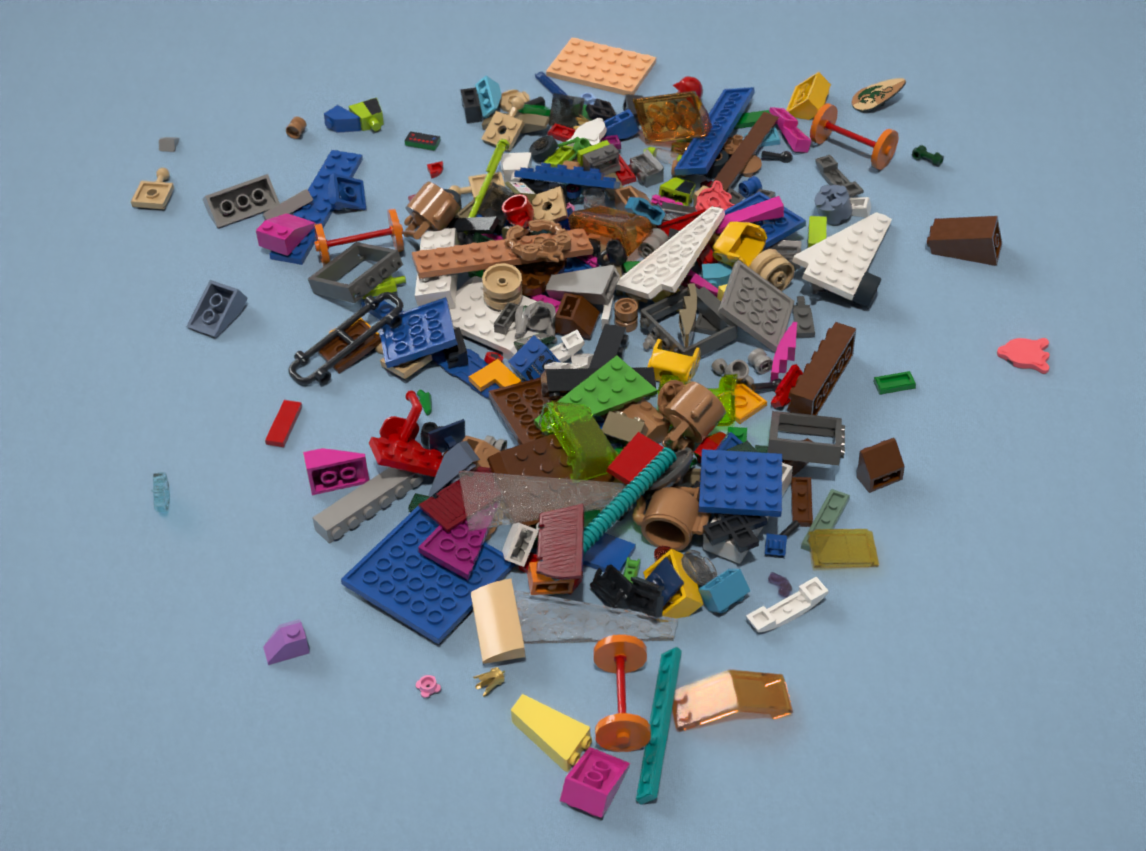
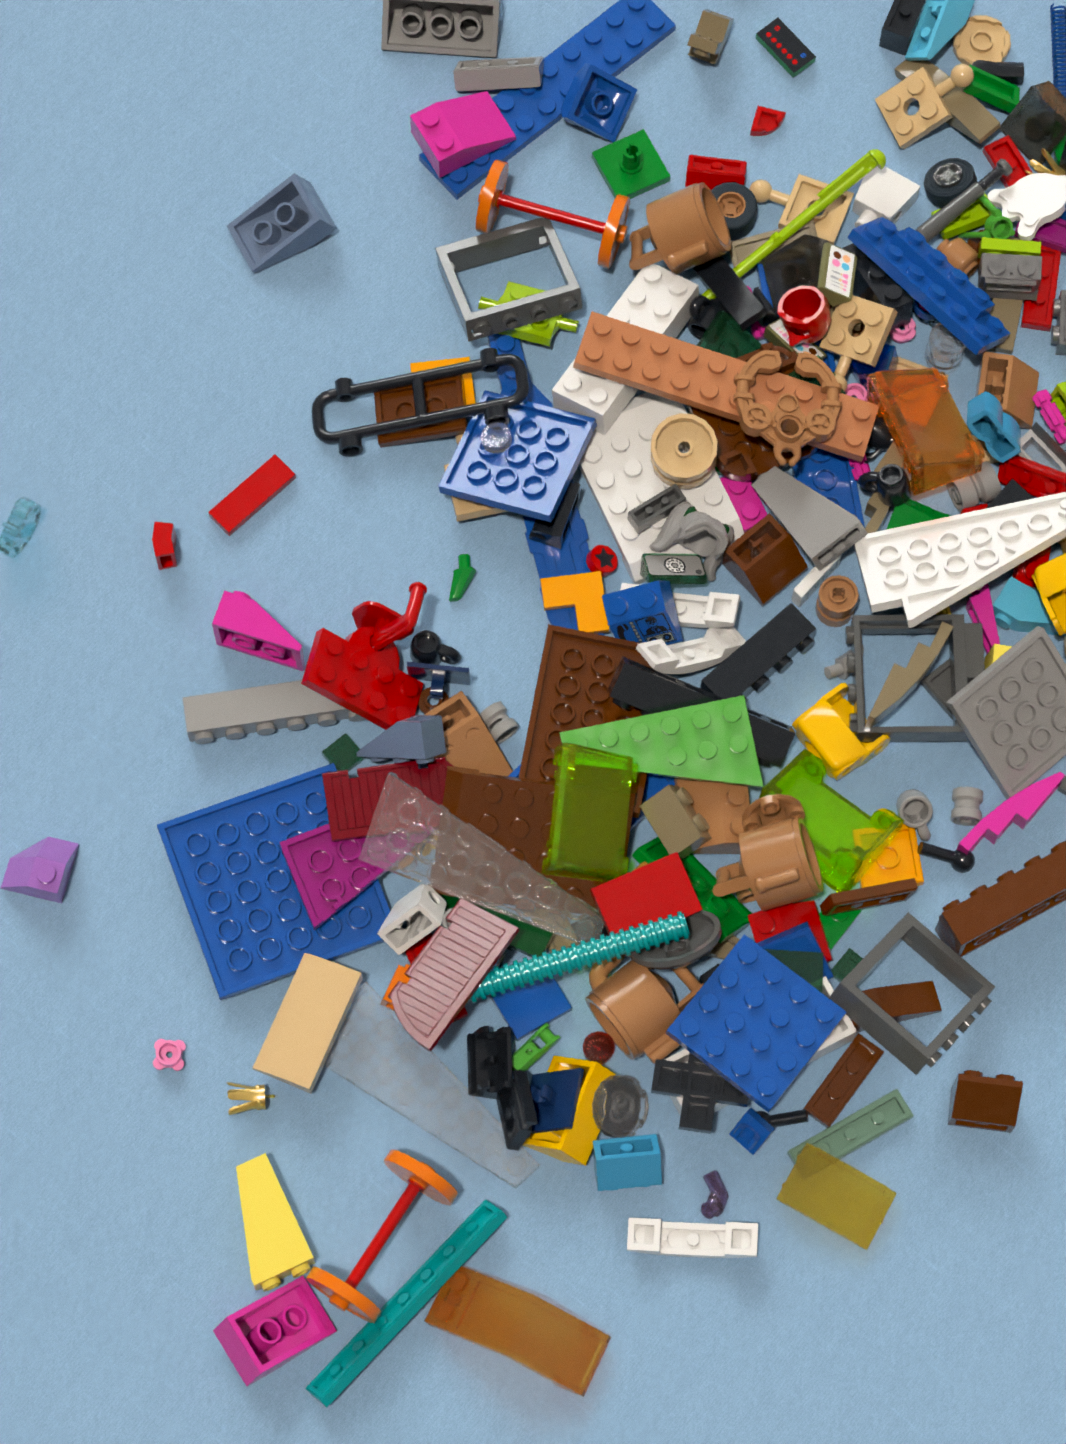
camera: 30 degrees right, 25 degrees up
(251, 463) = (164, 544): none -> red piece
(376, 211) = (631, 165): none -> green tile
(383, 148) = (710, 36): none -> dark tan brick
(400, 329) = (496, 438): none -> clear tile
(554, 152) = (958, 205): none -> dark grey piece
(716, 366) = (904, 777): light grey hinge -> none
(747, 415) = (868, 897): none -> reddish brown tile
(783, 389) = (965, 879): red hinge -> none

